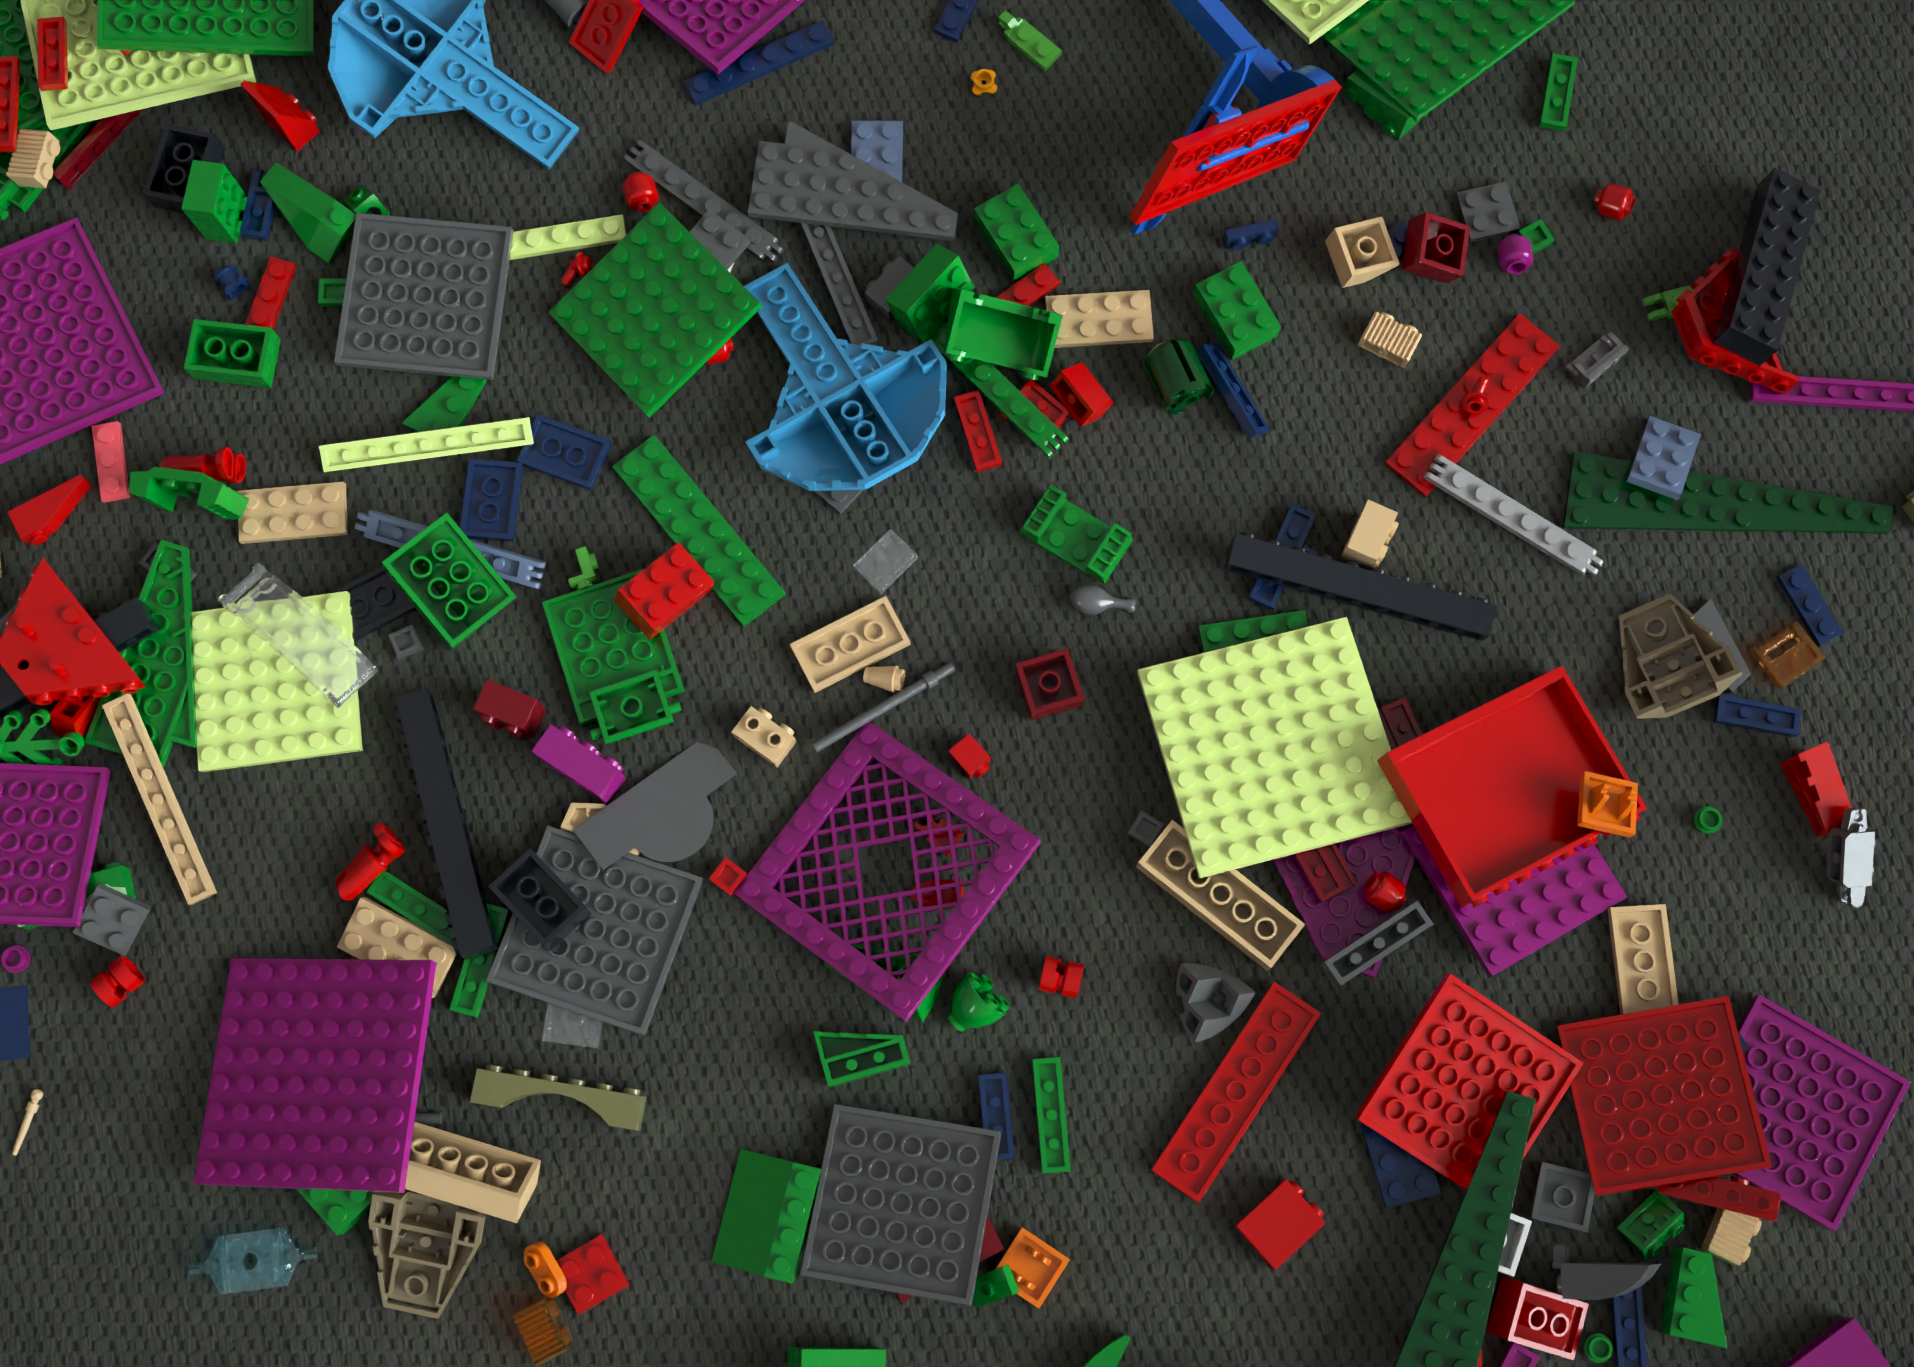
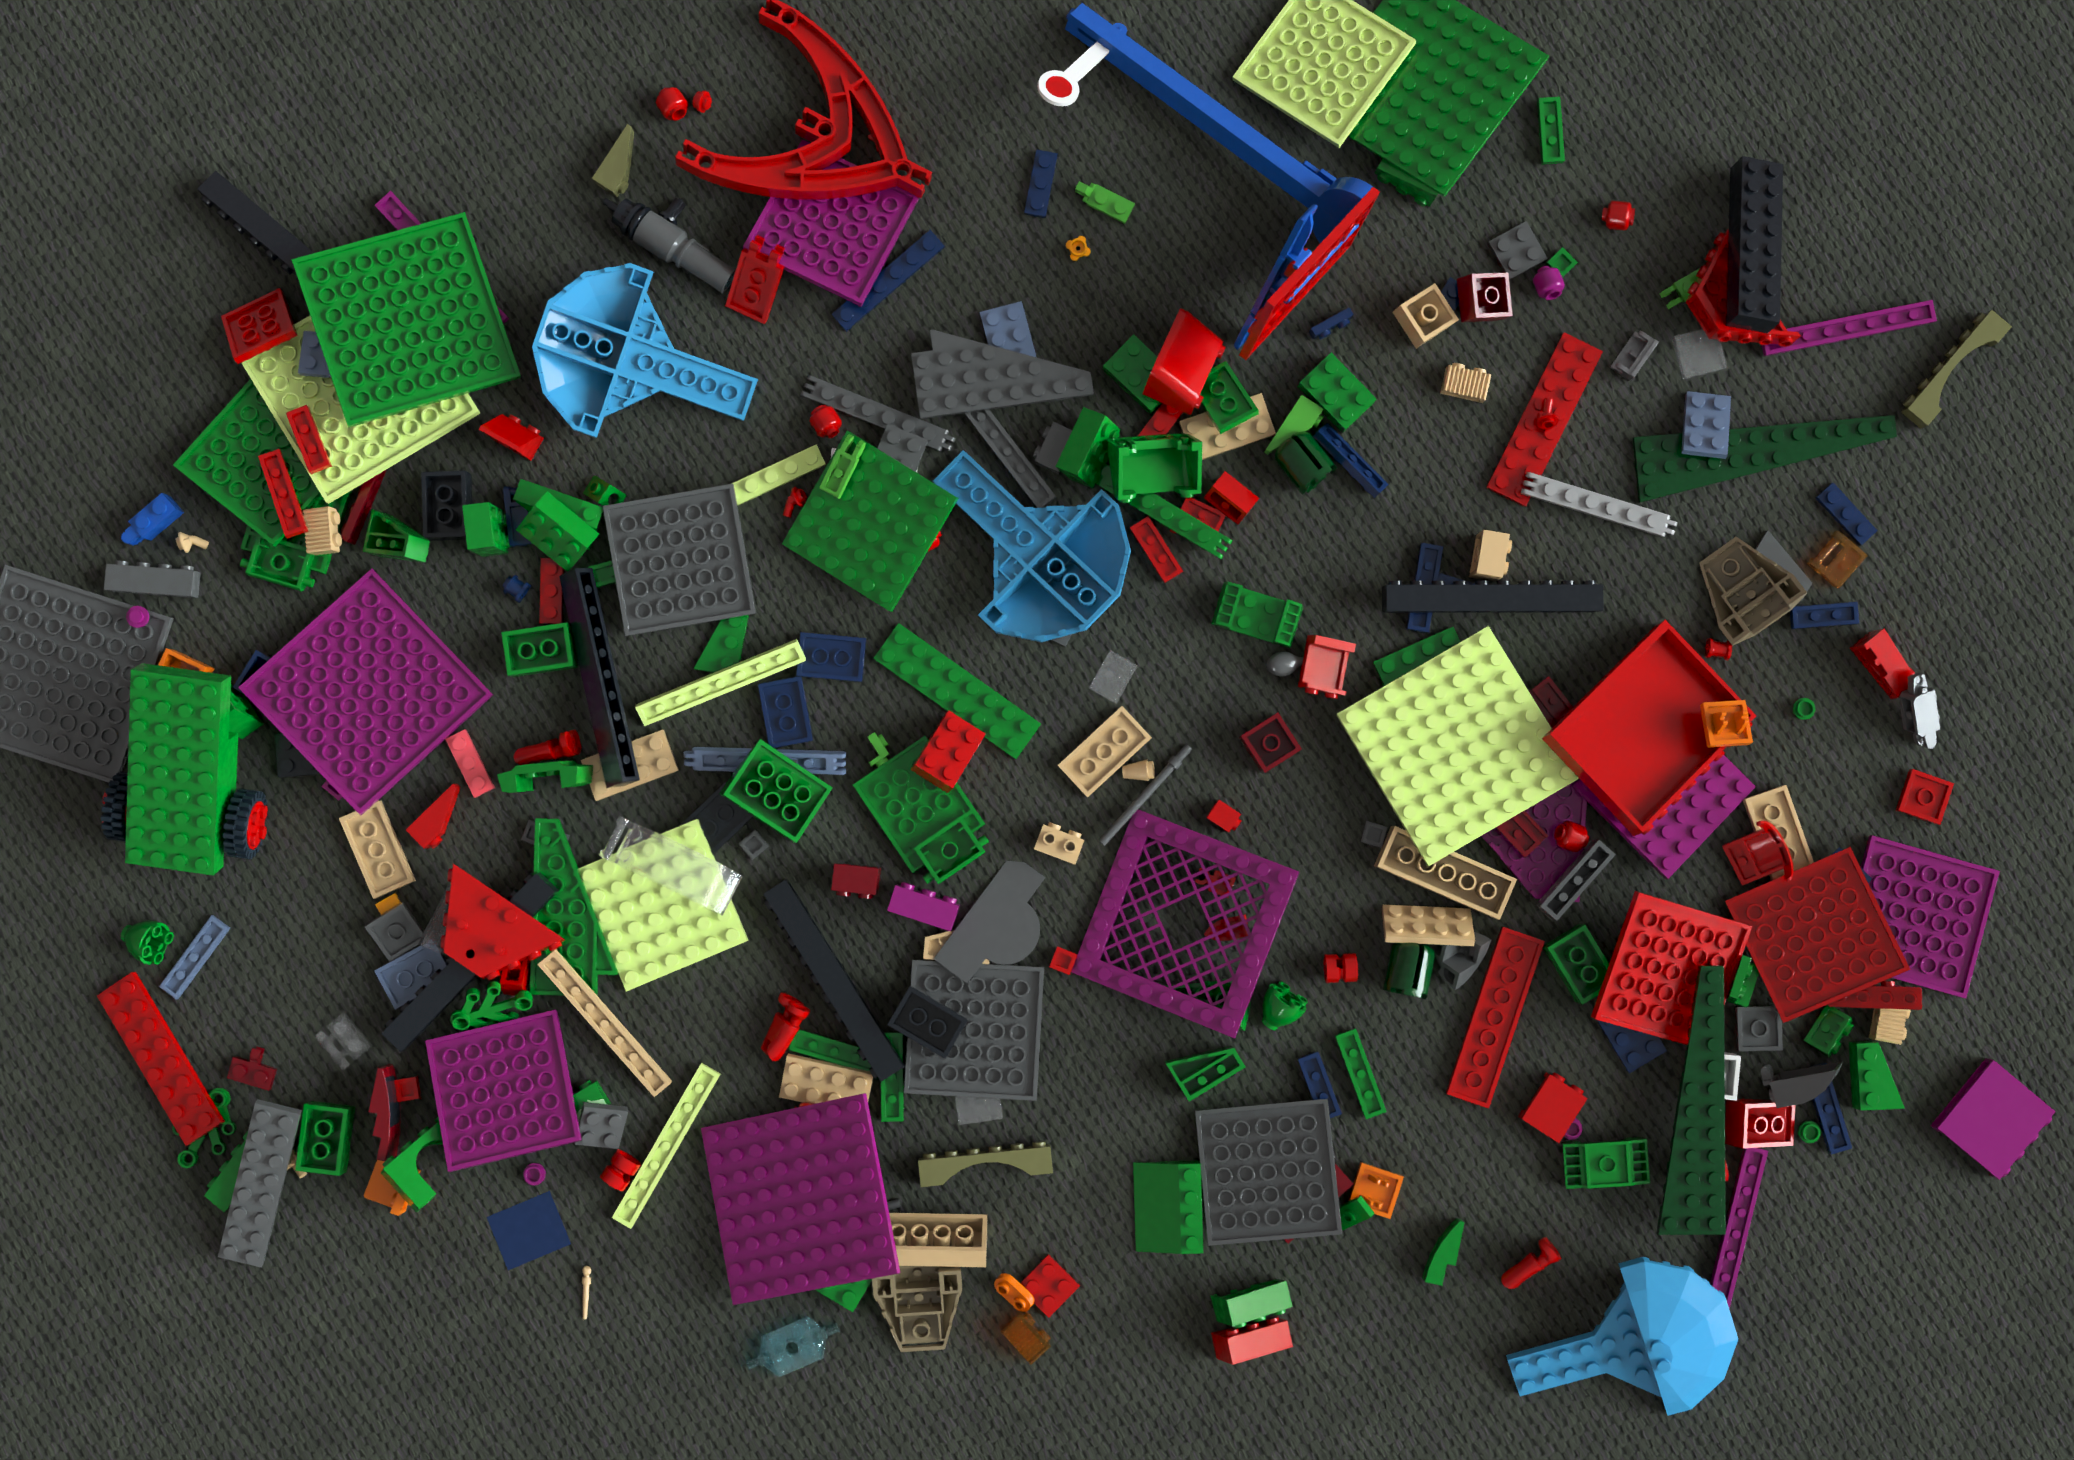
camera: 15 degrees left, 10 degrees up
(109, 189) = (394, 539): none -> green wedge
(182, 968) = (666, 1145): none -> yellowish green plate
(288, 402) = (599, 677): none -> black brick
(295, 226) = (557, 531): none -> green brick
(640, 237) = (842, 467): none -> bright green hinge
(1065, 226) = (1184, 363): none -> red windscreen
(1102, 280) = (1226, 399): none -> green plate
(1140, 613) = (1325, 666): none -> panel
(1145, 1000) = (1409, 969): none -> dark green cylinder
(1182, 953) = (1428, 925): none -> tan plate
(1190, 324) = (1301, 418): none -> bright green slope
(1298, 1261) = (1574, 1130): none -> magenta plate
(1329, 1313) = (1606, 1163): none -> green plate
(1355, 1049) = (1578, 962): none -> green brick
(1556, 1132) = (1743, 983): none -> green bracket
(1613, 977) = (1759, 854): none -> red piece
(1619, 720) = (1718, 649): none -> red bush
(1673, 377) = (1698, 354): none -> clear plate
(1835, 966) = (1925, 796): none -> red plate

